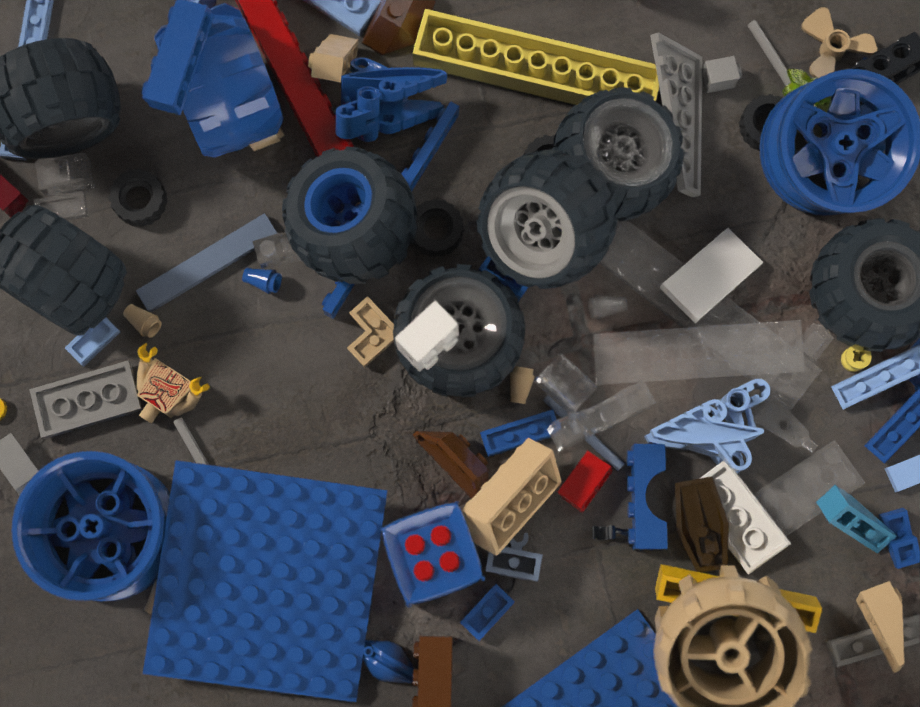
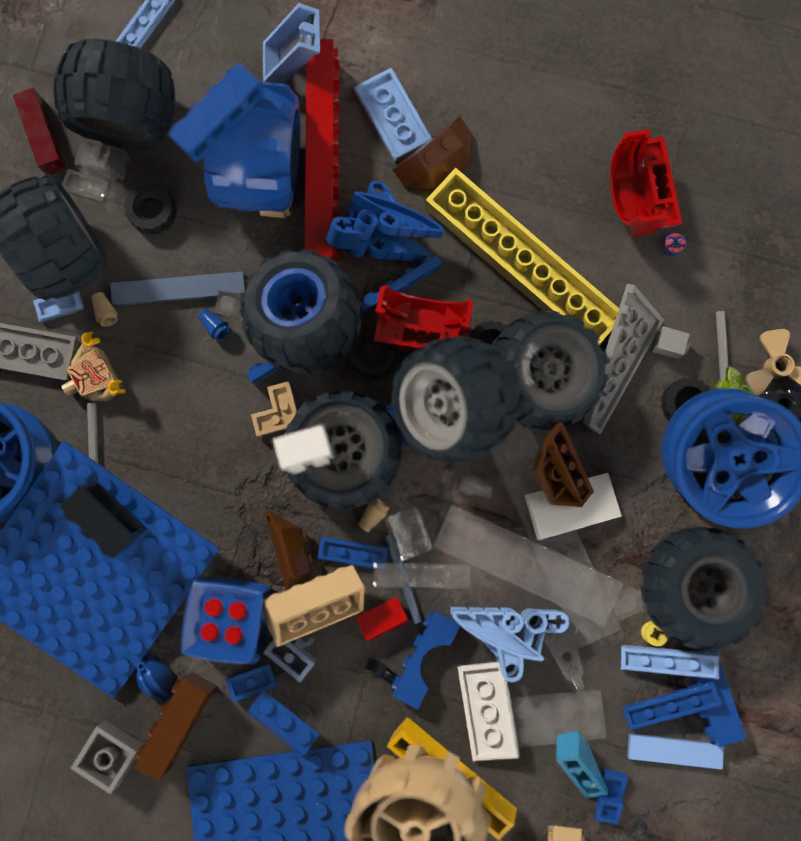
camera: 25 degrees right, 5 degrees up
(258, 513) = (102, 518): none -> black piece
(333, 57) = (359, 171): tan brick -> none
(464, 174) = (416, 321): none -> red piece
(541, 634) = (283, 723): none -> blue brick
(683, 241) = (561, 470): none -> reddish brown wedge
(702, 523) = (457, 702): dark brown piece -> none

